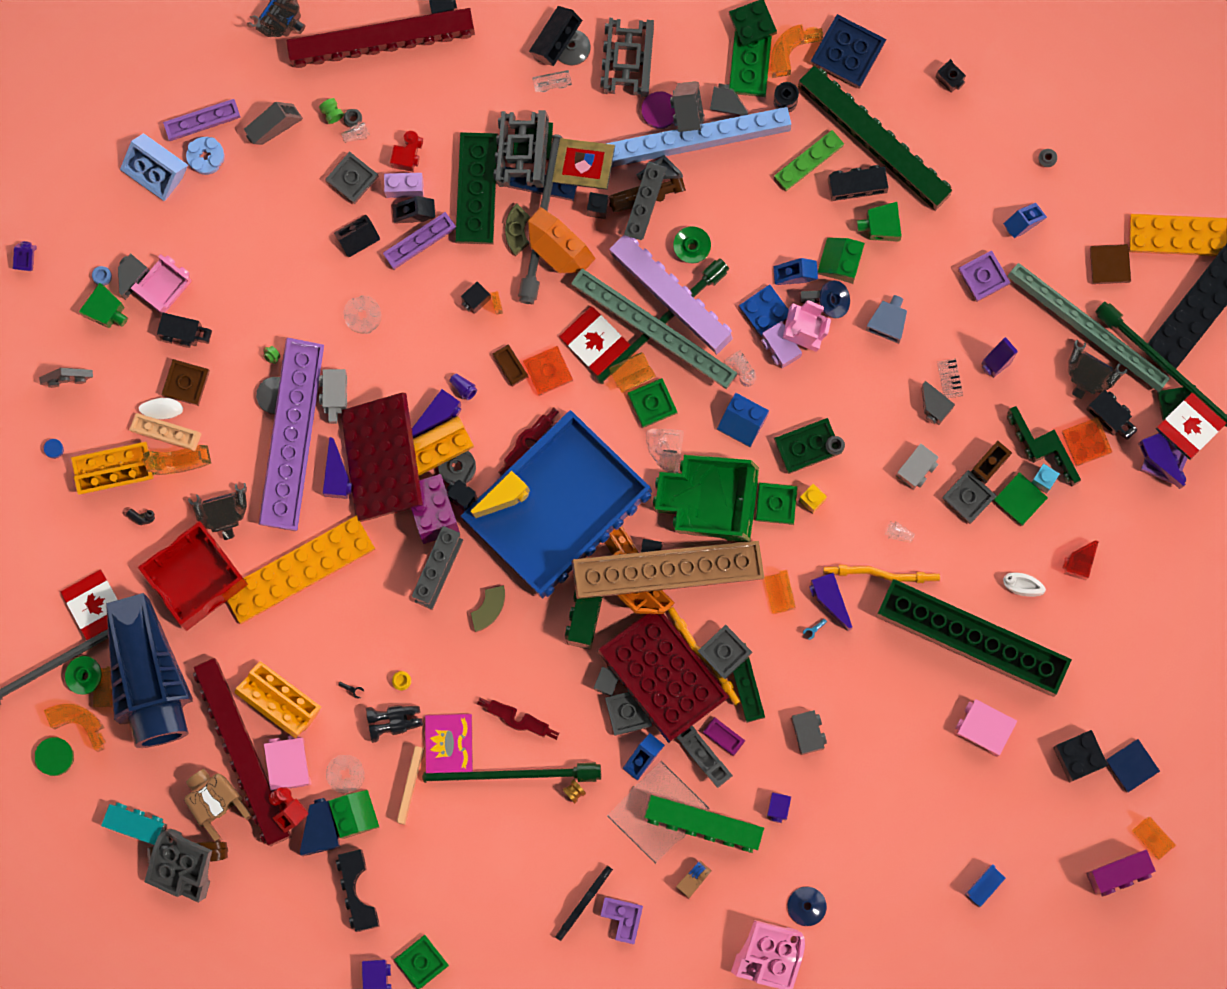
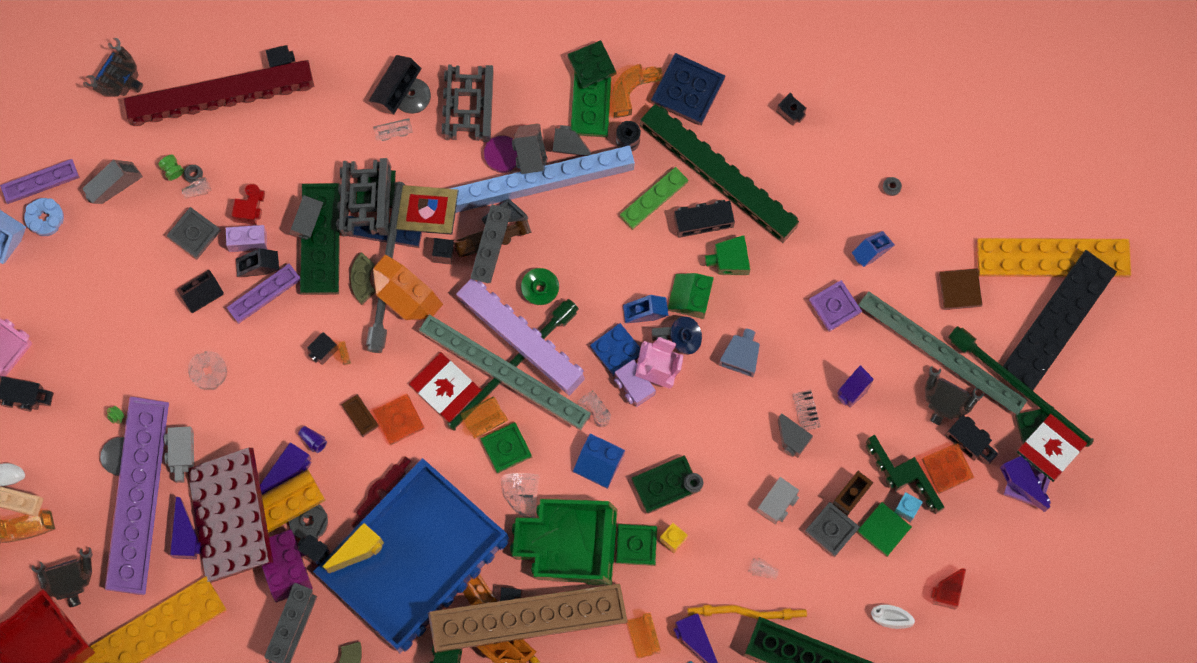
camera: 10 degrees left, 5 degrees down
(185, 382) = (27, 447): reddish brown plate -> none
(463, 167) = (306, 217): none -> dark grey hinge

